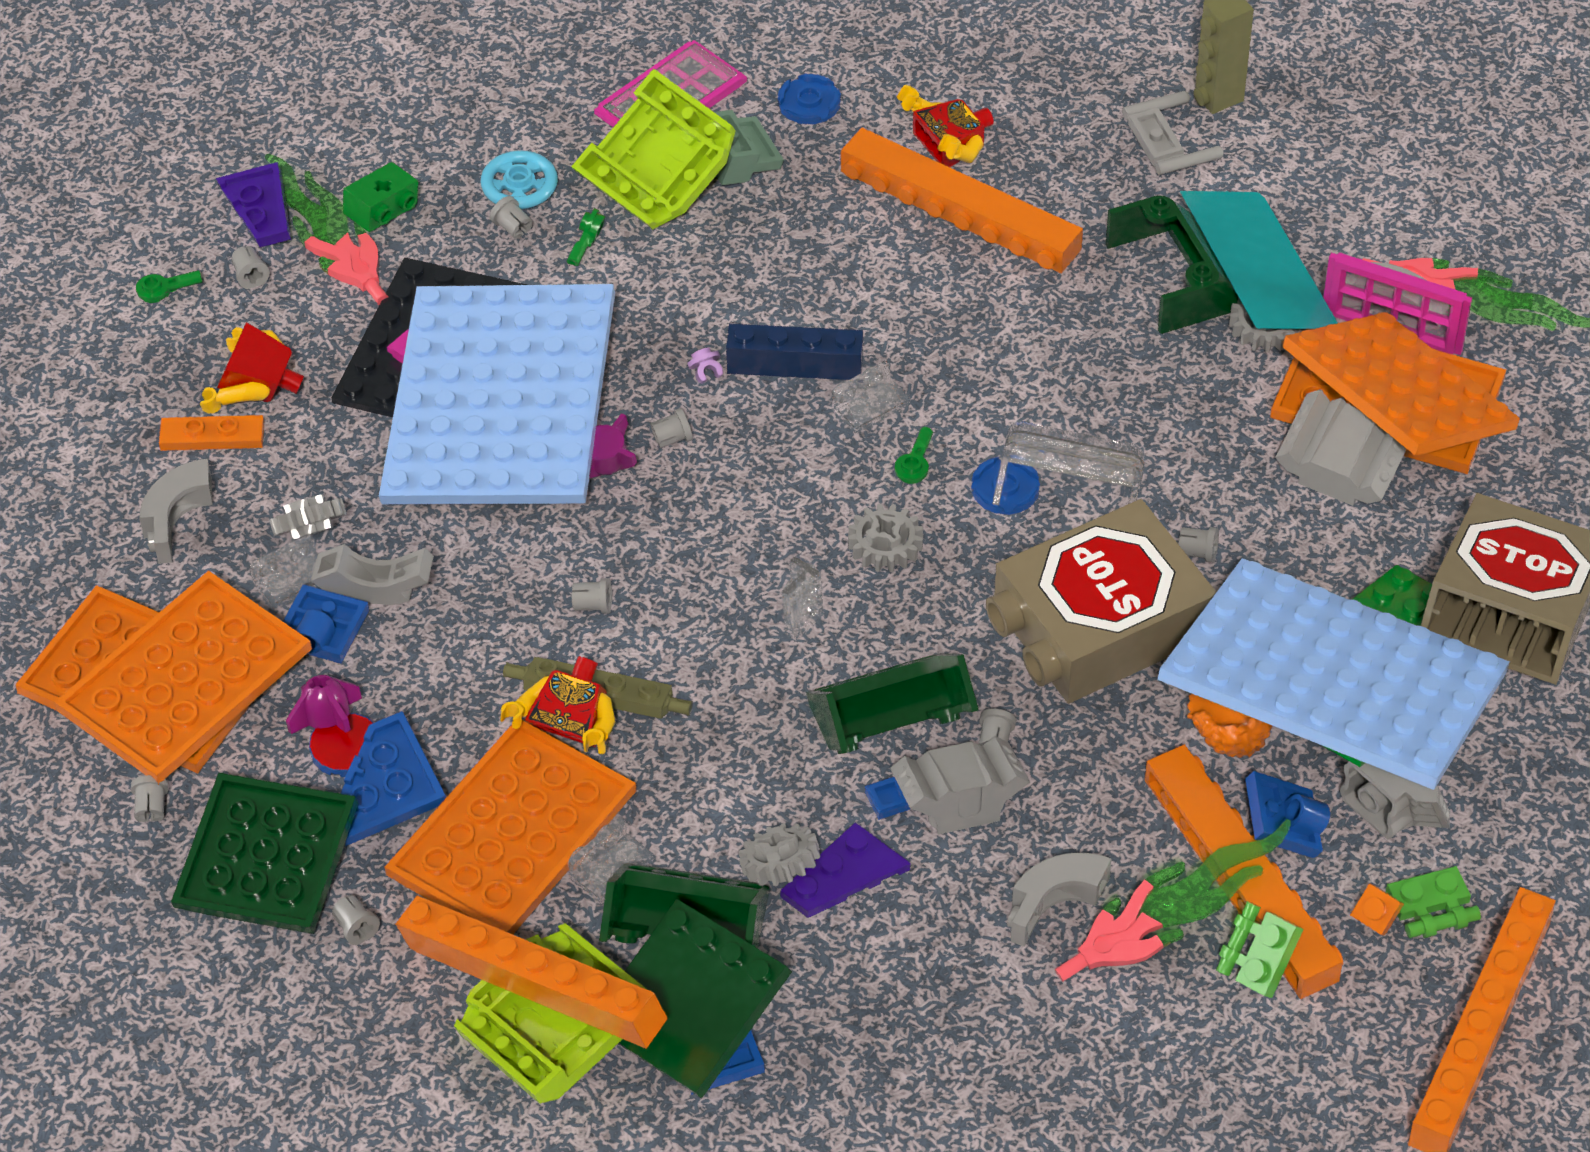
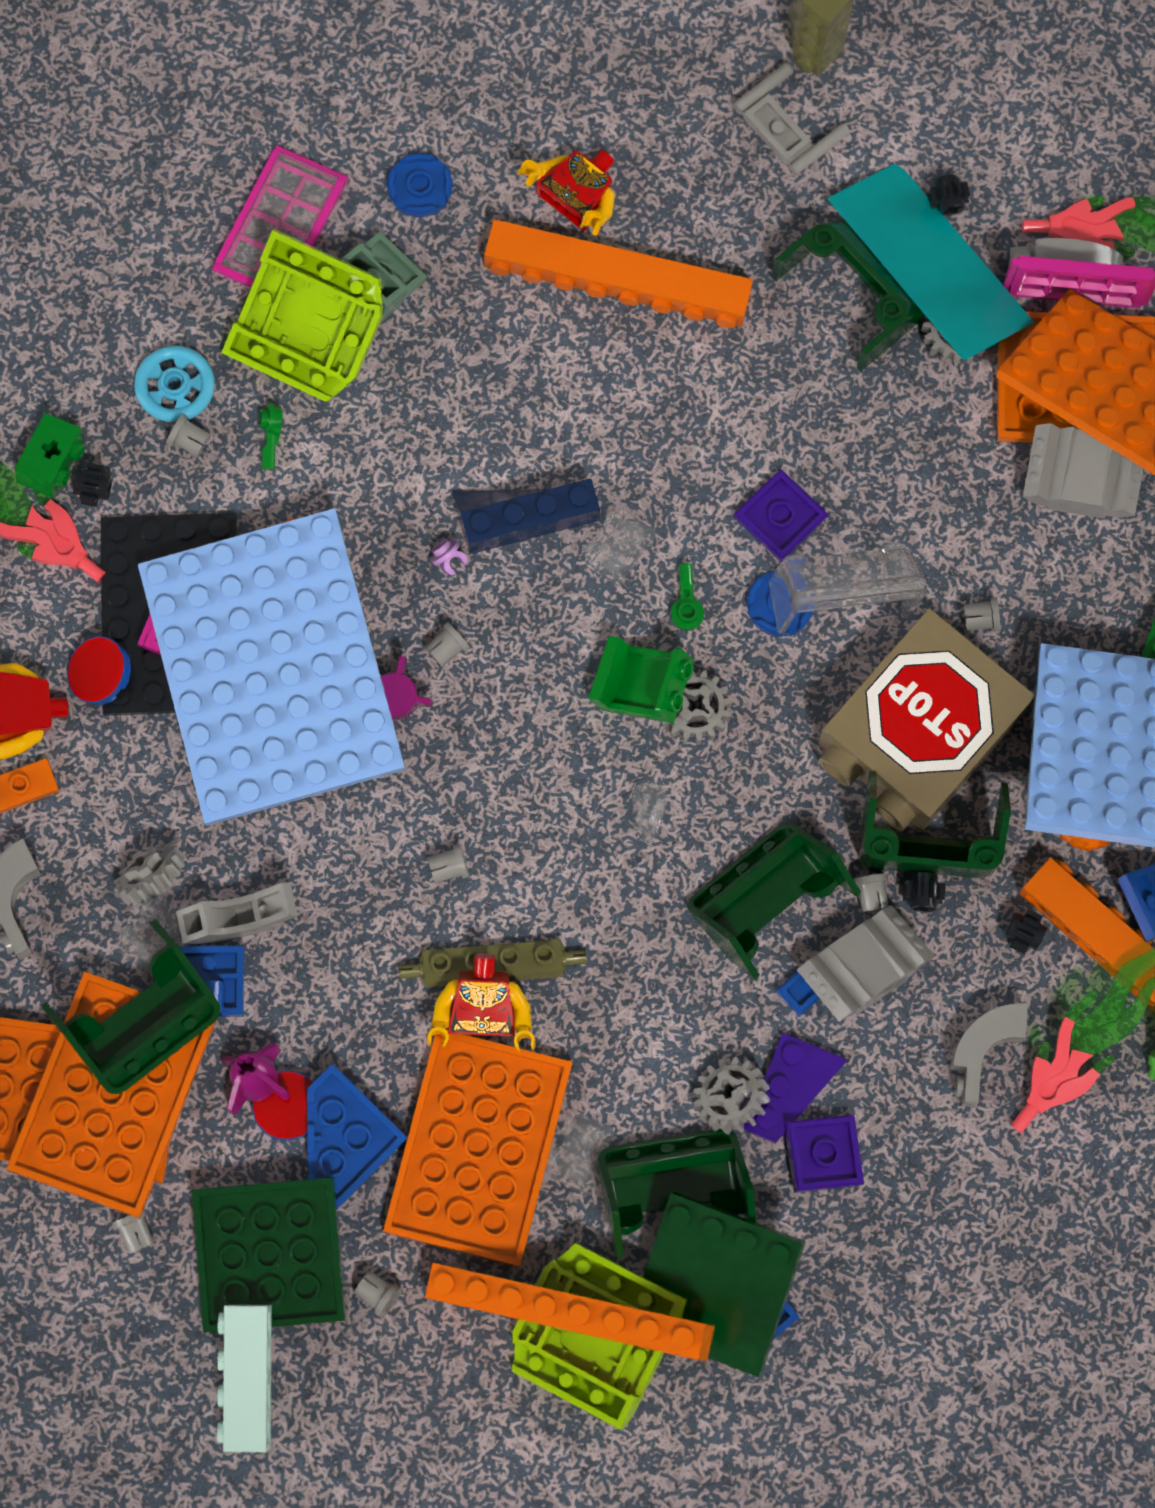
camera: 25 degrees left, 25 degrees up
(191, 944) = (246, 1378): none -> light aqua brick
(243, 626) = (147, 1026): none -> dark green windscreen
(343, 359) = (98, 670): none -> red tile
(408, 227) = (92, 484): none -> black gear
(839, 500) = (641, 681): none -> green panel
(851, 934) = (824, 1153): none -> dark purple tile
(1037, 406) = (780, 515): none -> dark purple tile
(1046, 744) = (924, 892): none -> black gear
(1105, 727) = (886, 850): none -> dark green windscreen
(1136, 805) = (1026, 931): none -> black gear
(1298, 219) = (949, 195): none -> black gear

